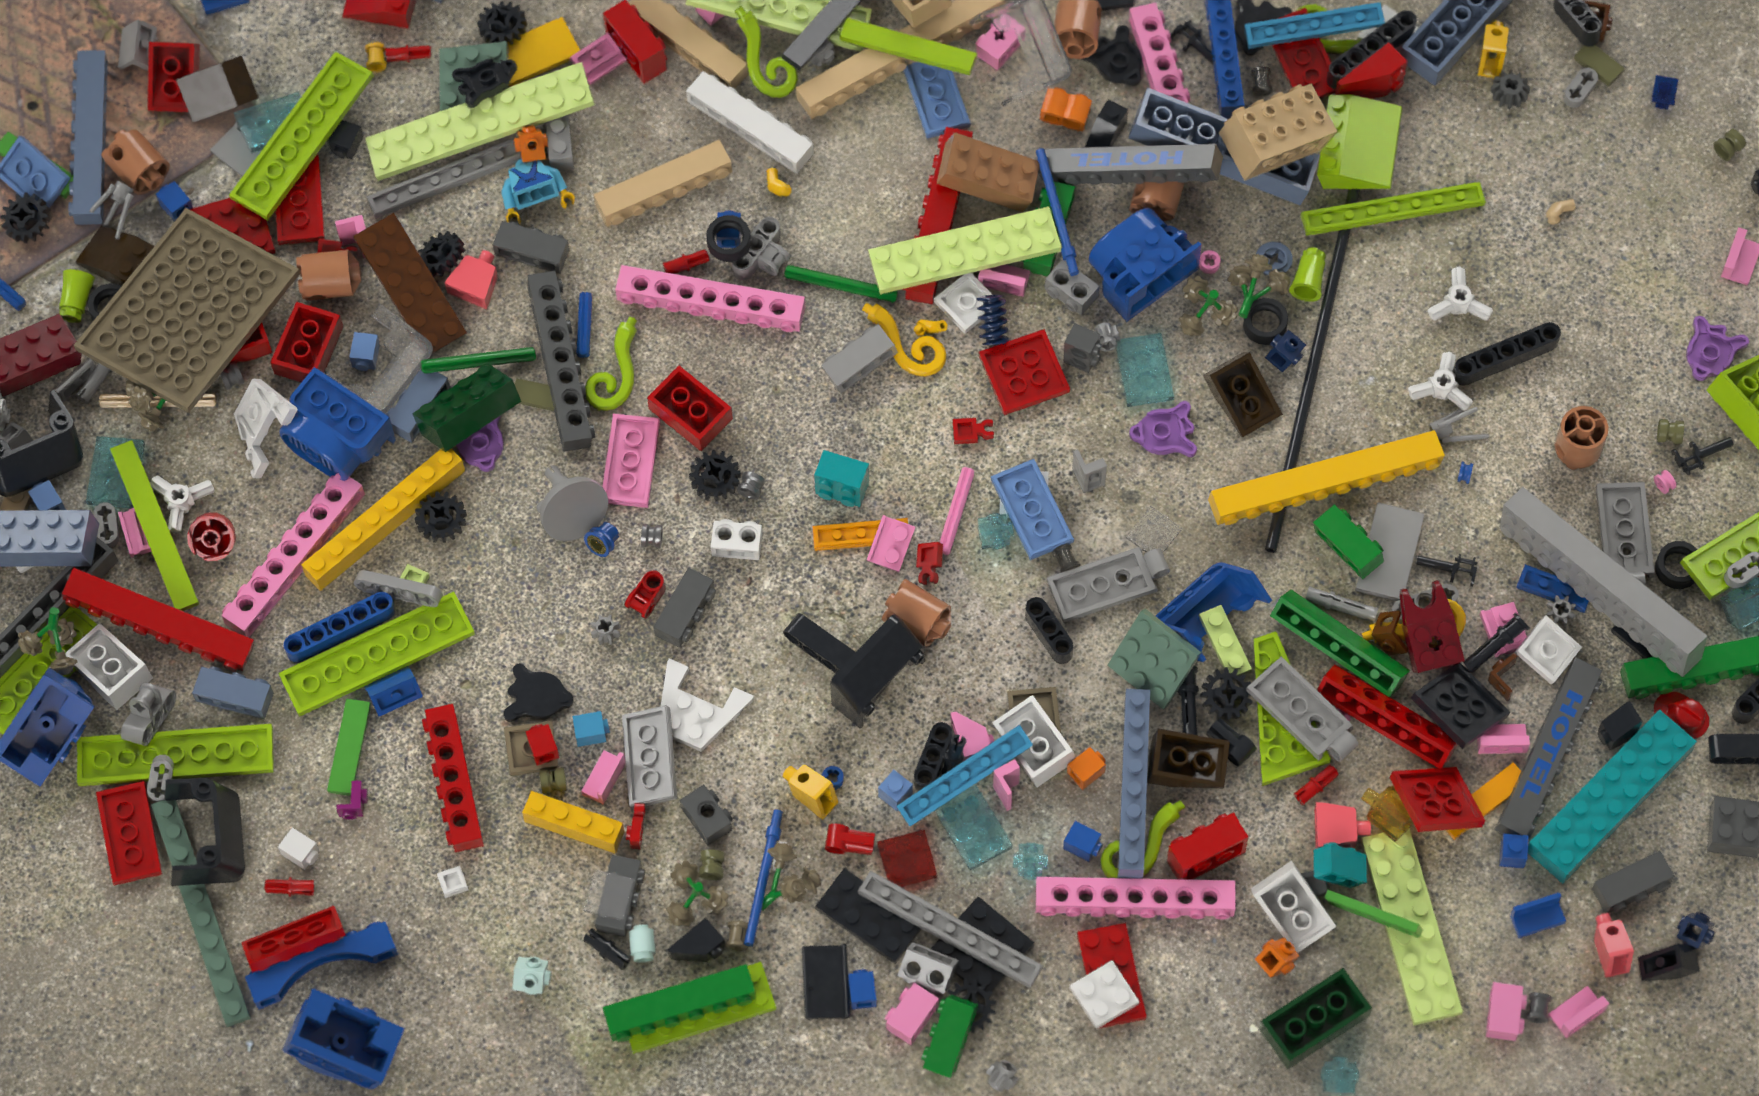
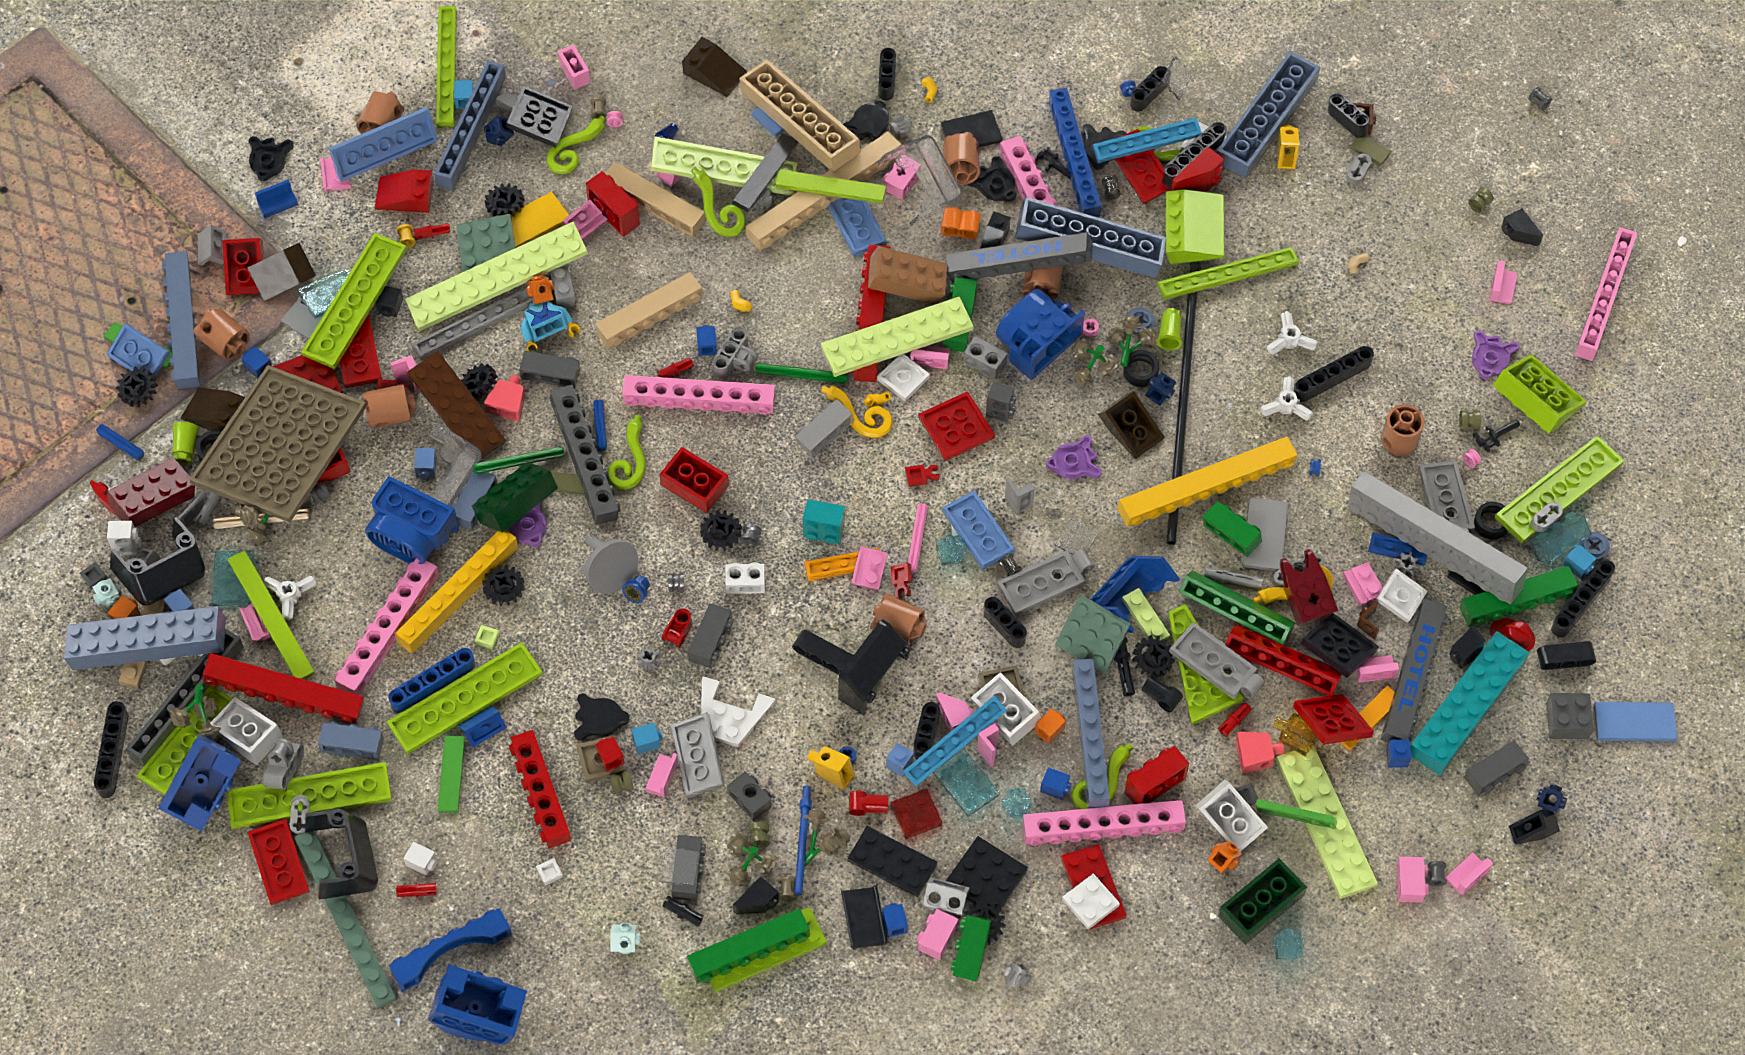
camera: 10 degrees left, 5 degrees down
(112, 523) = (235, 619): light grey beam -> none
(120, 194) = (212, 360): light grey plant -> none
(211, 536) = (319, 619): red cylinder -> none
(255, 415) = (343, 521): white wing -> none
(293, 939) = (425, 930): red plate -> none
(306, 342) = (377, 459): red brick -> none
(359, 797) = (461, 823): magenta bracket -> none
(398, 588) = (495, 645): light grey beam -> none
(484, 80) = (496, 243): black tile -> none
(573, 822) = (642, 813): yellow brick -> none
(631, 460) = (651, 525): bright pink tile -> none
(635, 832) = (694, 815): red plate -> none
(642, 943) = (711, 903): light aqua brick -> none
(733, 254) = (704, 333): black tyre -> none
(750, 122) = (712, 257): white brick -> none
(950, 929) = (959, 864): light grey tile -> none
(954, 755) = (944, 725): black pin -> none
(993, 319) = (926, 387): dark blue piece -> none
(1068, 251) = (979, 329): blue bar -> none
(1108, 336) = (1021, 391): light grey gear -> none
(1144, 370) = (1050, 415): clear light blue plate -> none
(1187, 760) = (1130, 711): dark brown slope -> none
(1277, 131) = (1132, 220): tan brick -> none
(1340, 865) = (1264, 779): teal brick -> none
(1386, 635) = (1274, 598): reddish brown bracket -> none
(1444, 428) = (1293, 433): light grey plant -> none
(1449, 566) = (1313, 540): black piece -> none
(1504, 635) = (1366, 587): black pin -> none
(1510, 89) = (1305, 175): dark grey gear -> none
(1537, 915) = (1425, 801): blue panel -> none
(1613, 946) = (1489, 818): coral torso -> none
(1664, 92) = (1424, 165): clear blue bracket -> none

